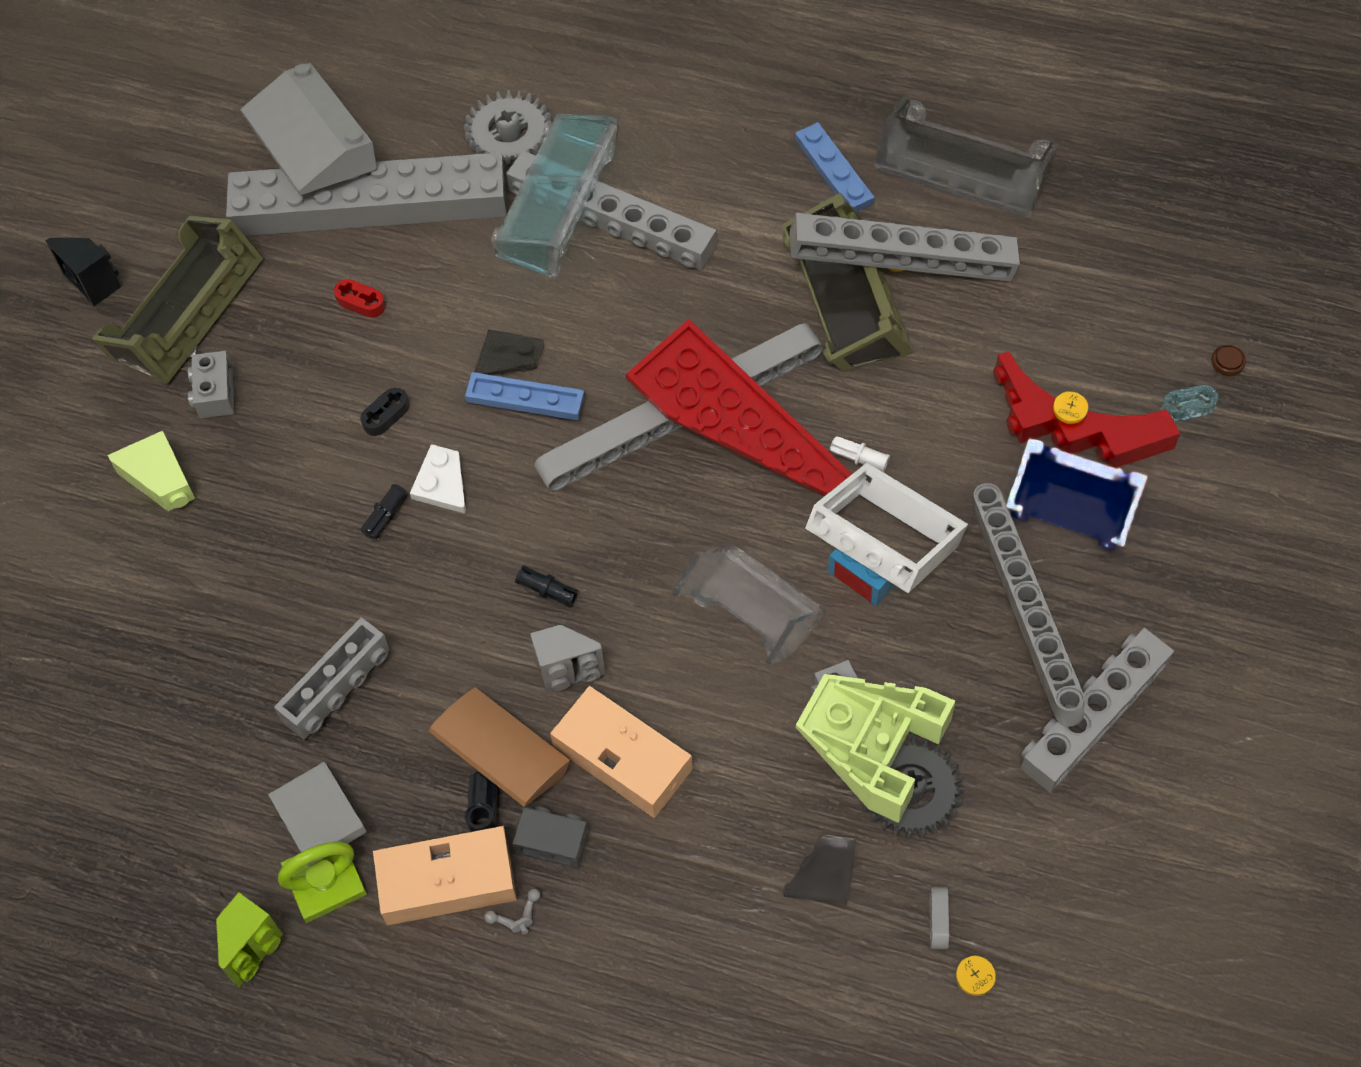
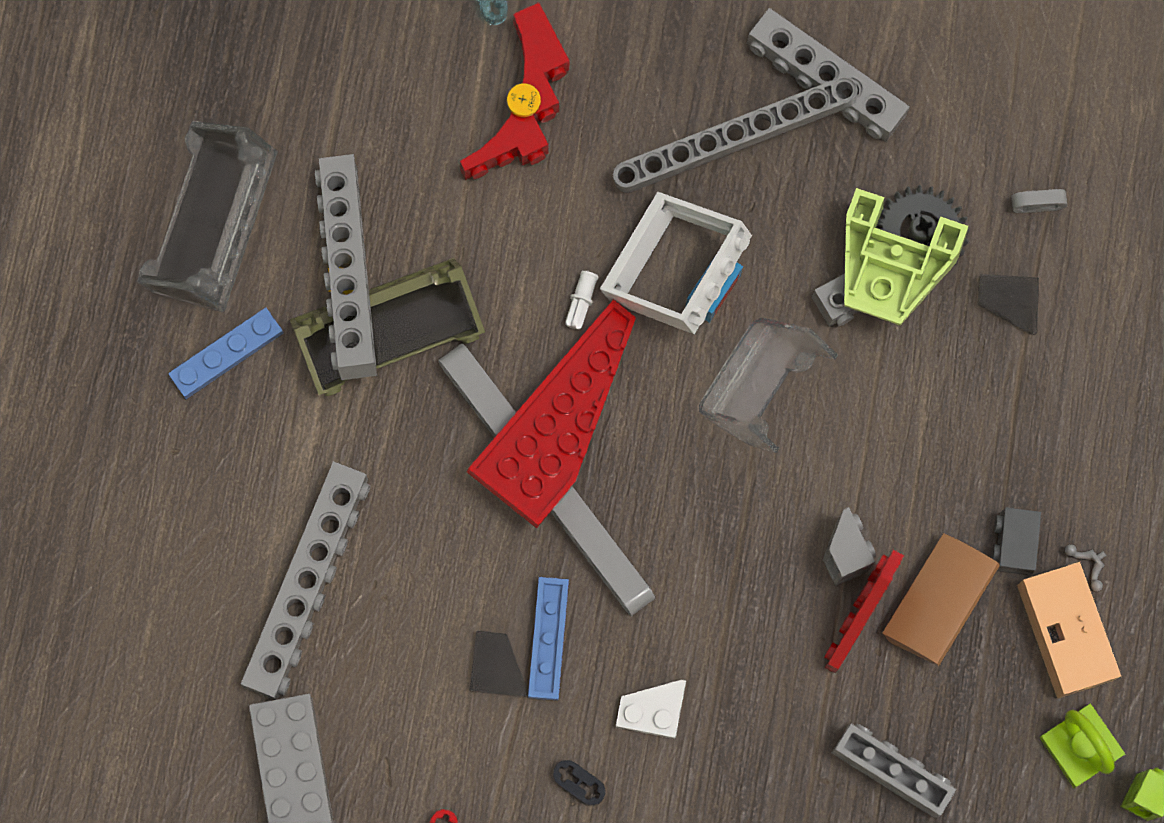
camera: 105 degrees left, 15 degrees up
(316, 810) = (1027, 760): light grey tile -> none
(384, 511) = (698, 761): black axle -> none
(481, 802) = (992, 609): black piece -> none
(501, 662) = (865, 603): none -> red wing
(510, 118) = (178, 689): light grey gear -> none
(546, 586) = (762, 584): black pin -> none
(556, 191) = (293, 635): windscreen -> none
(622, 751) = (927, 488): light nougat brick -> none
(975, 975) = (1081, 170): yellow piece -> none
(1075, 494) = (607, 93): clear blue windscreen -> none

